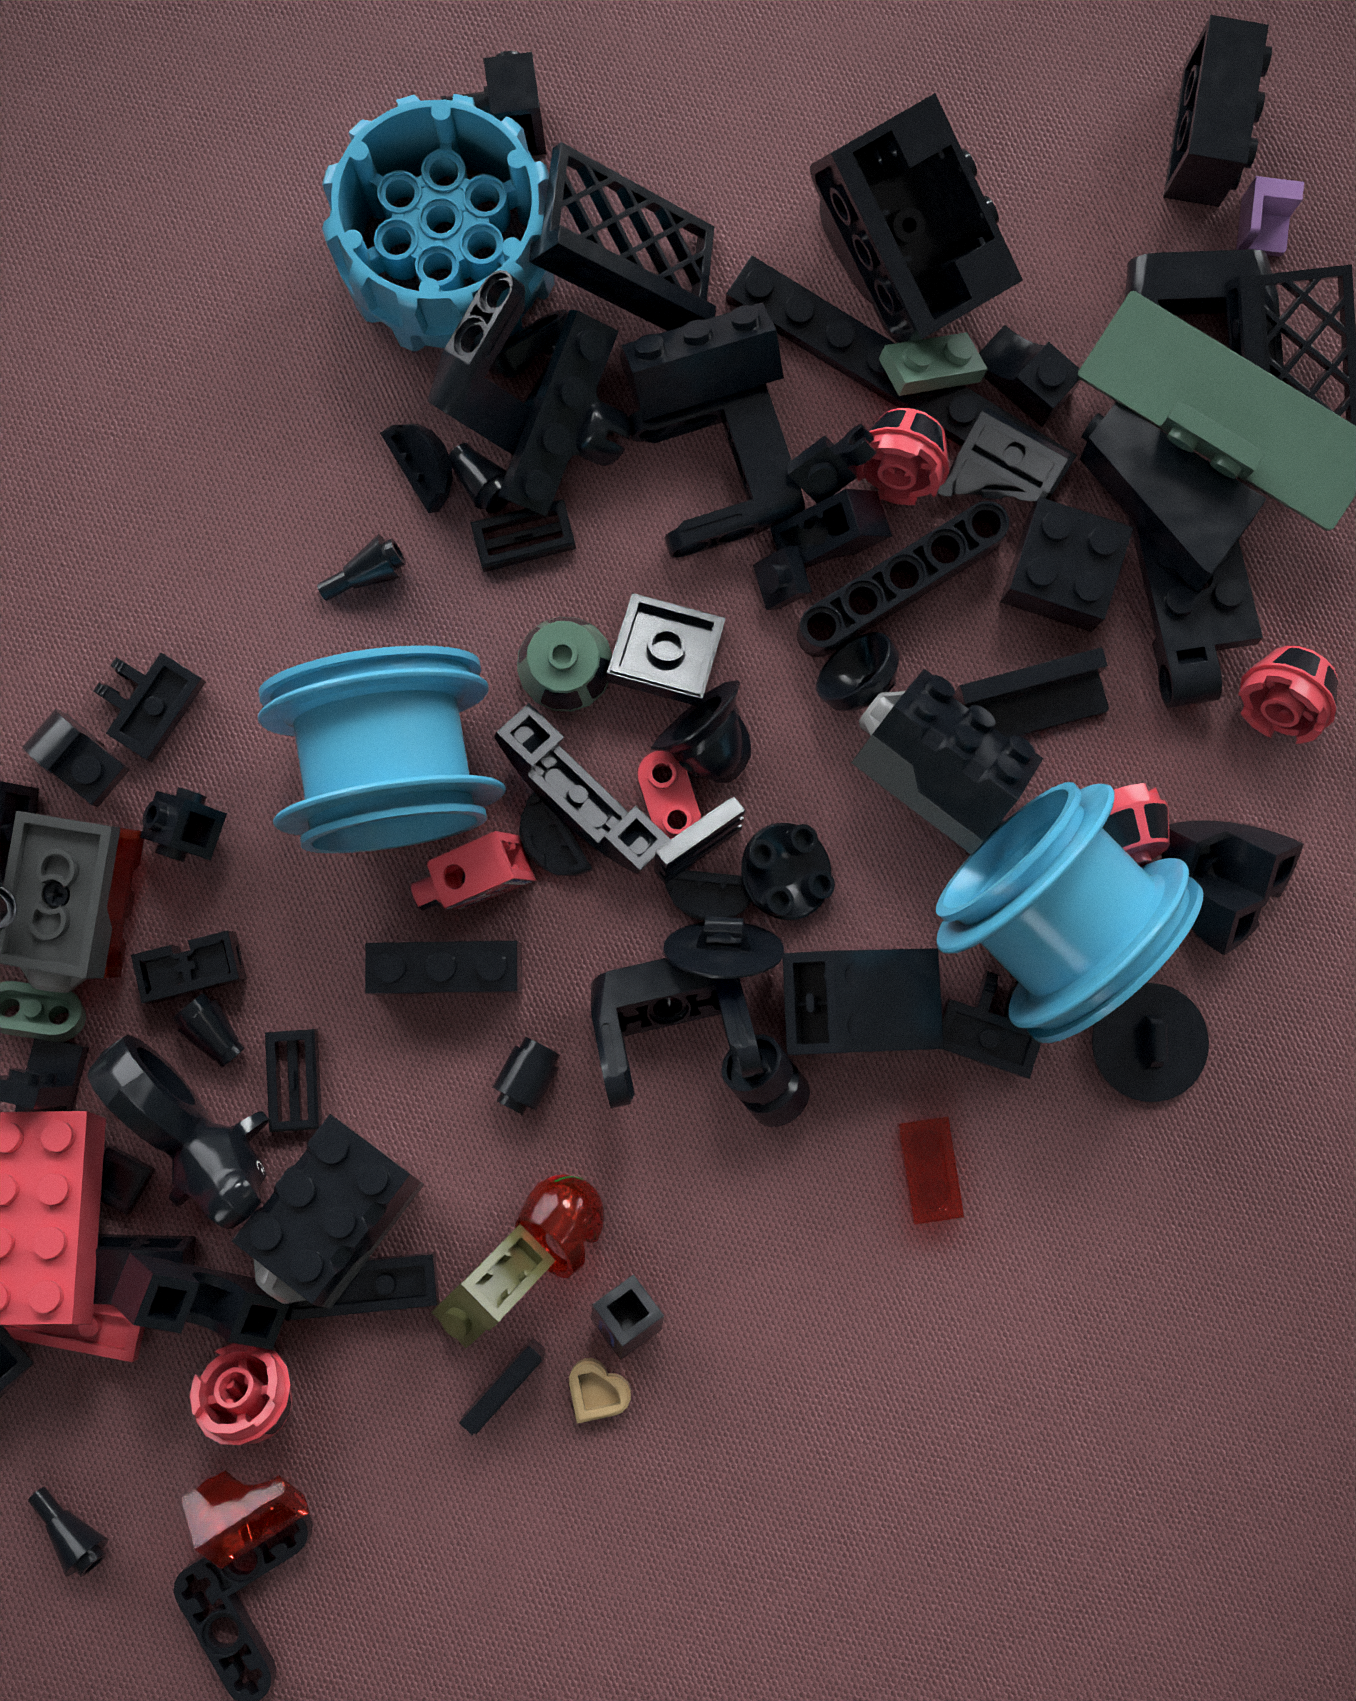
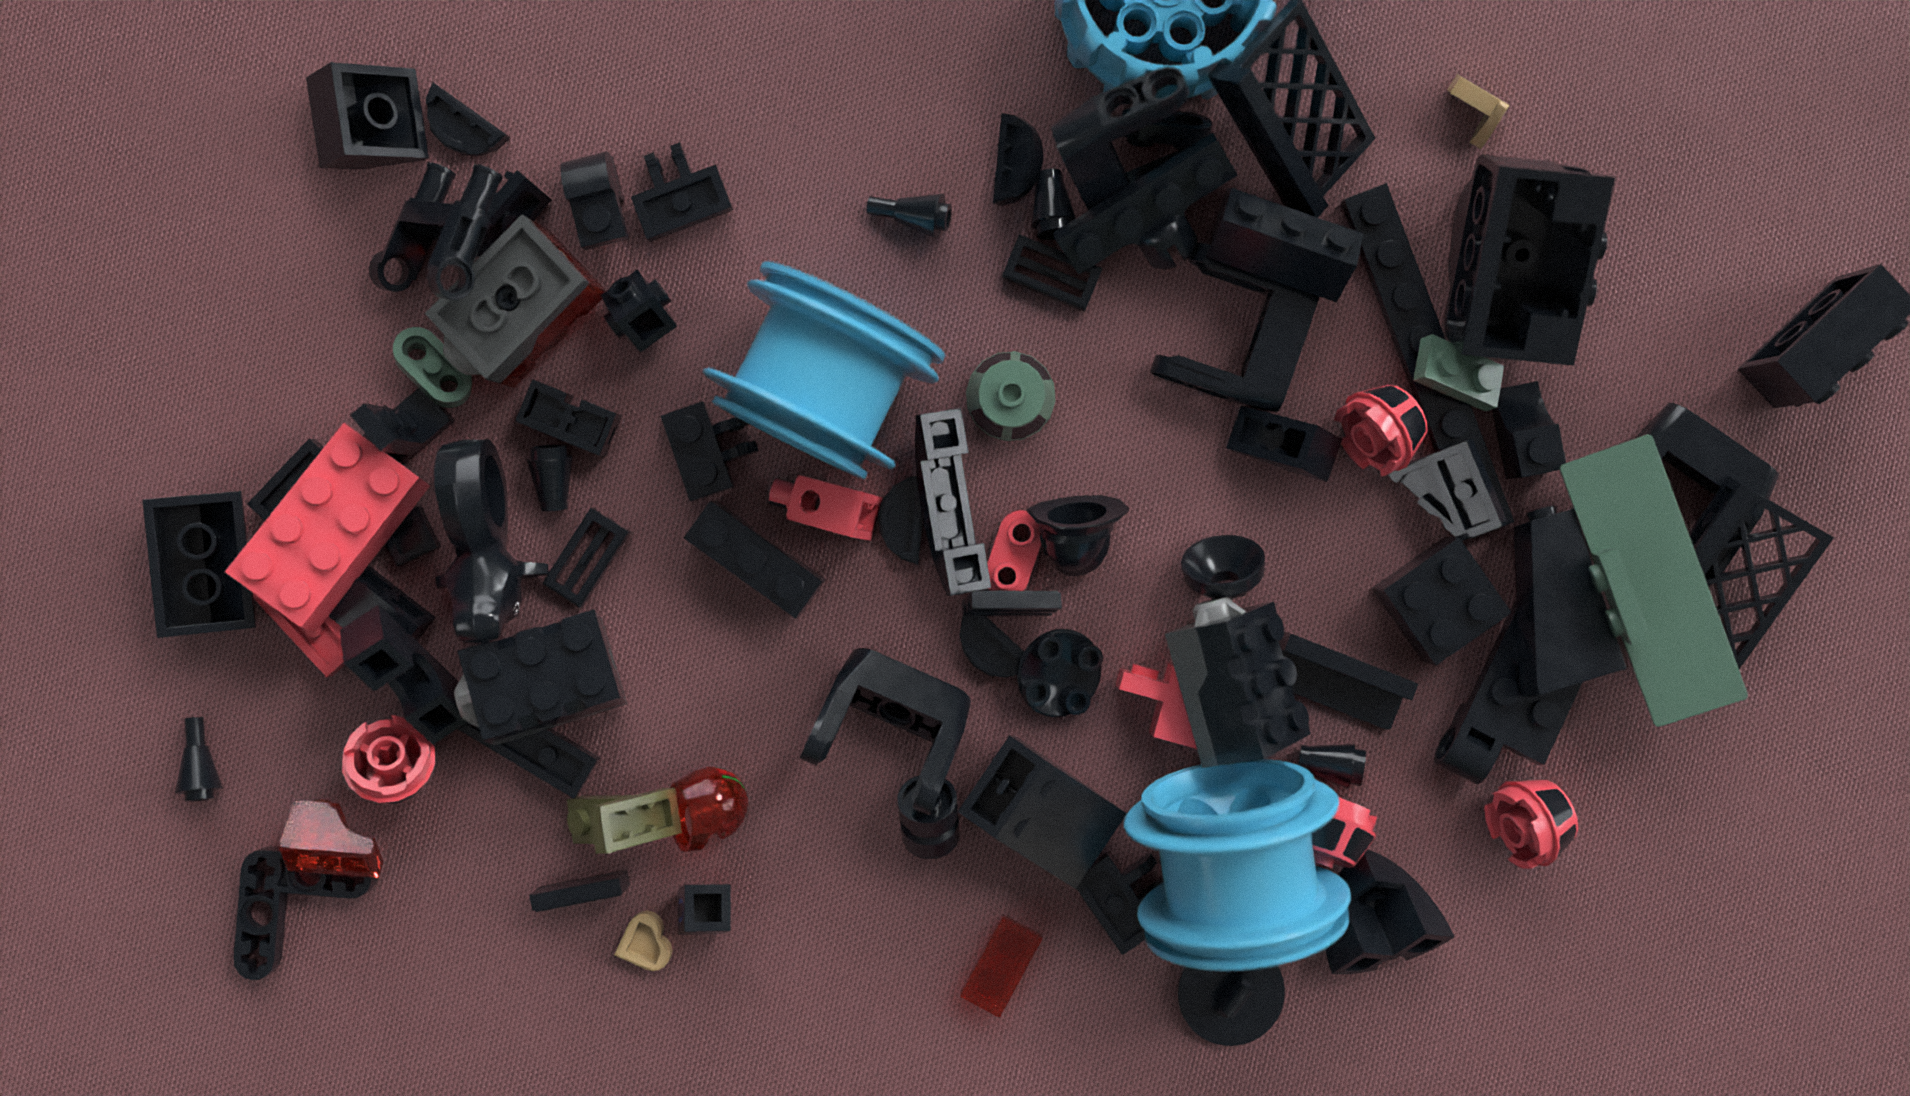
camera: 40 degrees right, 5 degrees up
(326, 912) = (699, 451): none -> black hinge
(526, 1076) = (757, 681): black brick -> none
(665, 650) = (1093, 441): tile -> none
(723, 948) = (968, 699): black shield -> none
(781, 130) = (1485, 102): none -> tan tile
(782, 578) = (1221, 451): black plate -> none
(830, 467) = (1318, 397): black plate -> none
(910, 832) = (1170, 715): none -> coral brick
(918, 563) = (1331, 514): black beam -> none
(1087, 767) = (1334, 763): none -> black cone
(1267, 213) = (1803, 444): lavender panel -> none

